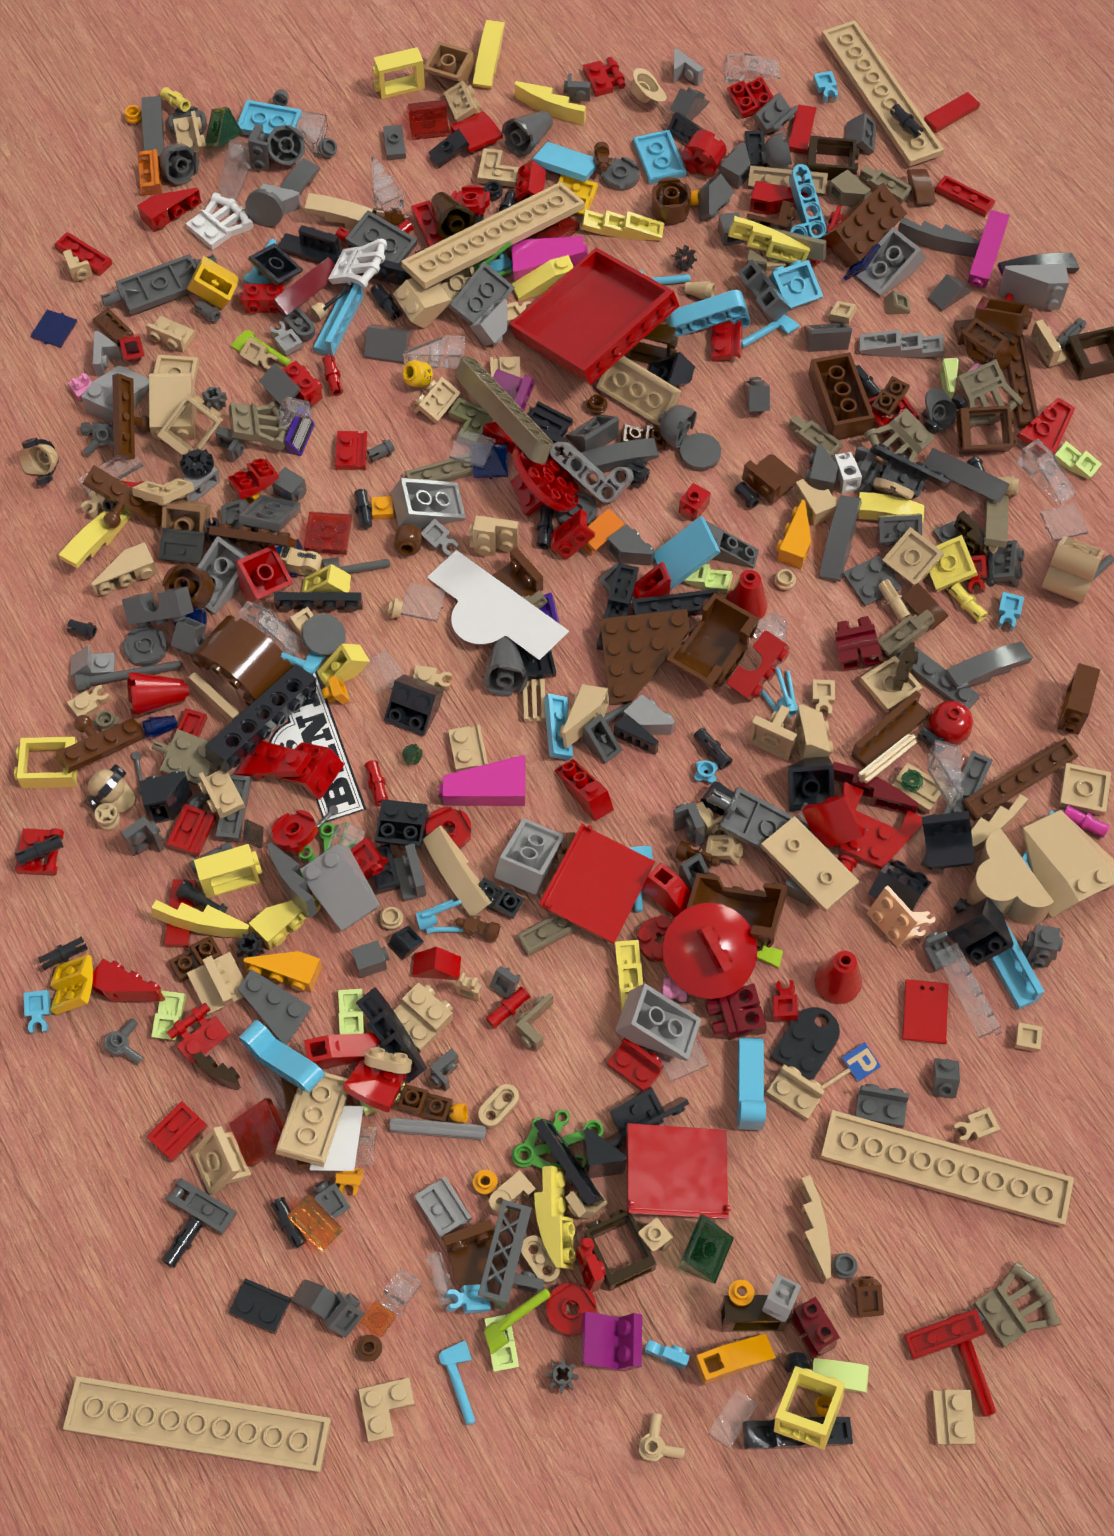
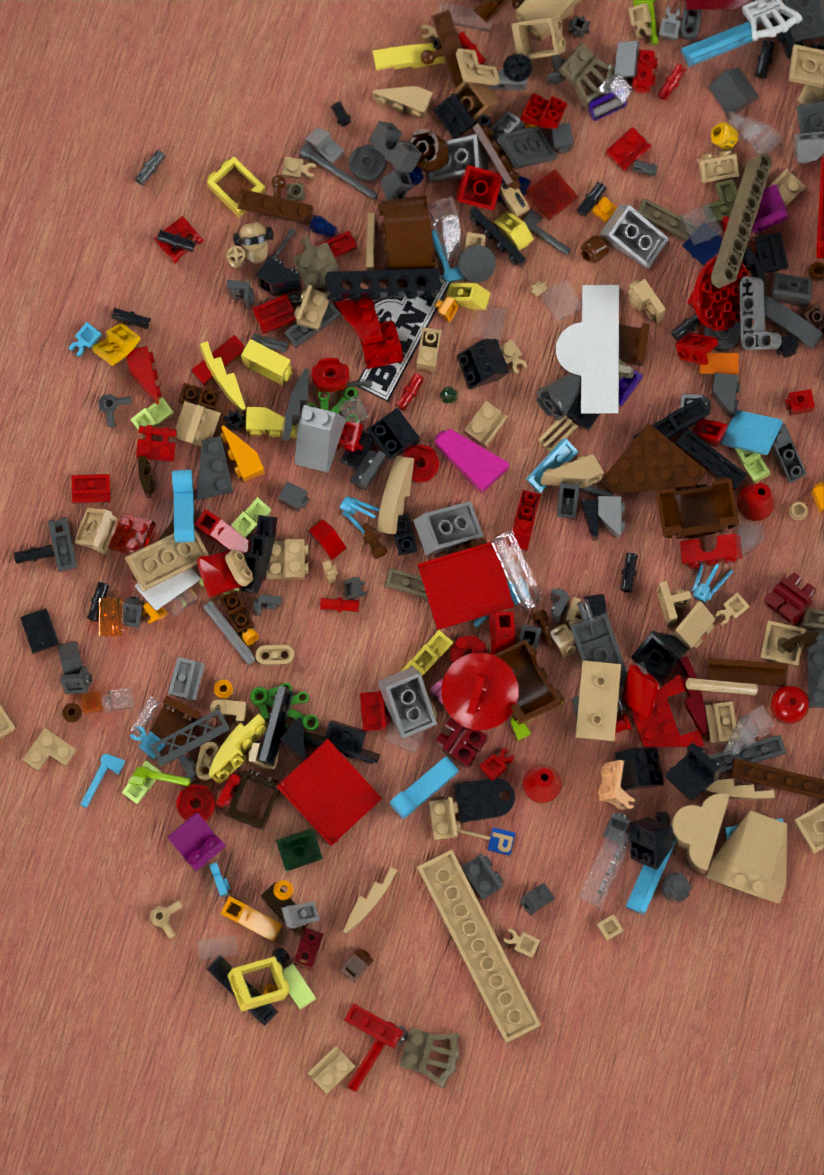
camera: 45 degrees right, 15 degrees up
(154, 692) = (339, 202): red cone -> none
(197, 897) = (236, 361): black piece -> none
(253, 833) = (306, 352): clear smoke slope -> none
(320, 309) = (715, 24): hinge -> none
(357, 734) = (428, 349): none -> tan slope
(391, 918) = (331, 484): tan plate -> none
(404, 942) = (325, 506): black slope -> none
(422, 304) = (778, 89): tan slope -> none
(438, 536) = (616, 264): light grey plate -> none
(527, 1033) = (341, 622): dark tan bracket -> none
(562, 1368) = (149, 828): dark grey gear -> none
(625, 830) = (513, 571): none -> clear fence
(655, 1236) = (278, 813): tan bracket -> none
(706, 766) = (603, 582): medium azure plate -> none
(844, 1266) = (364, 936): dark grey plate -> none
(912, 775) = (719, 710): clear green plate -> none
(925, 1011) = (570, 852): red container -> none
(928, 737) = (765, 700): black pin -> none
(1087, 822) = (796, 845): dark pink pin -> none

